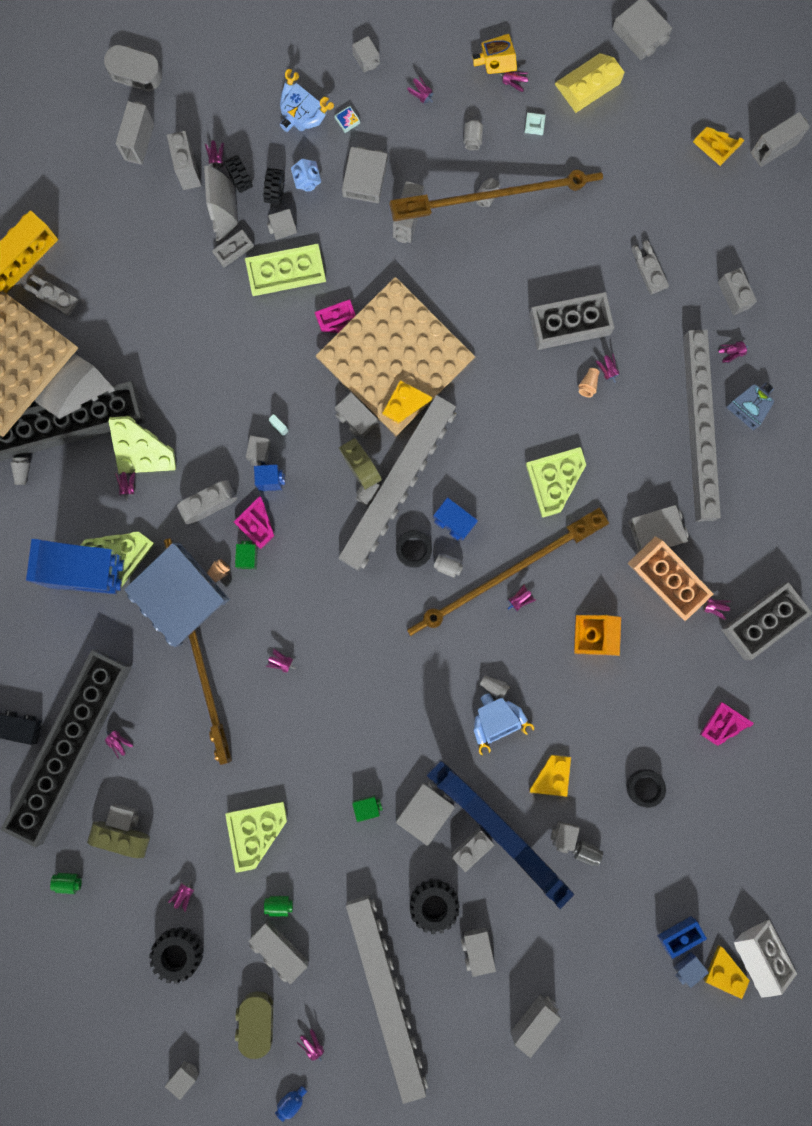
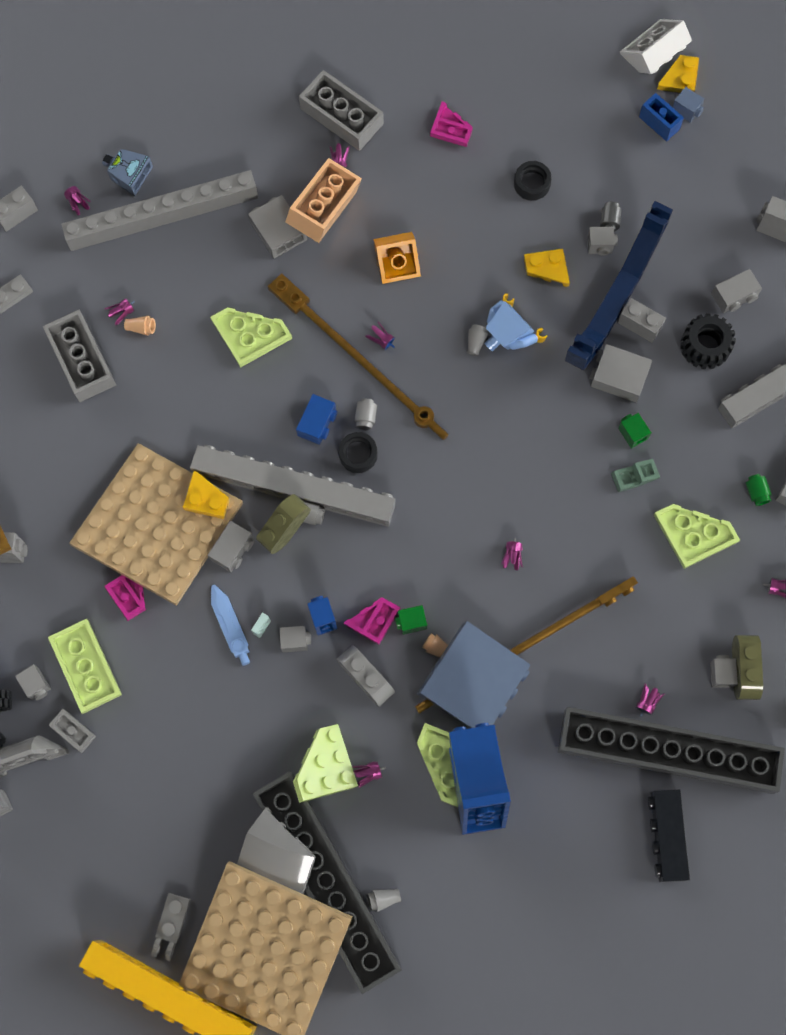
camera: 100 degrees left, 10 degrees down
(288, 399) = (229, 625): none -> light blue piece
(324, 796) = (636, 475): none -> sand green slope

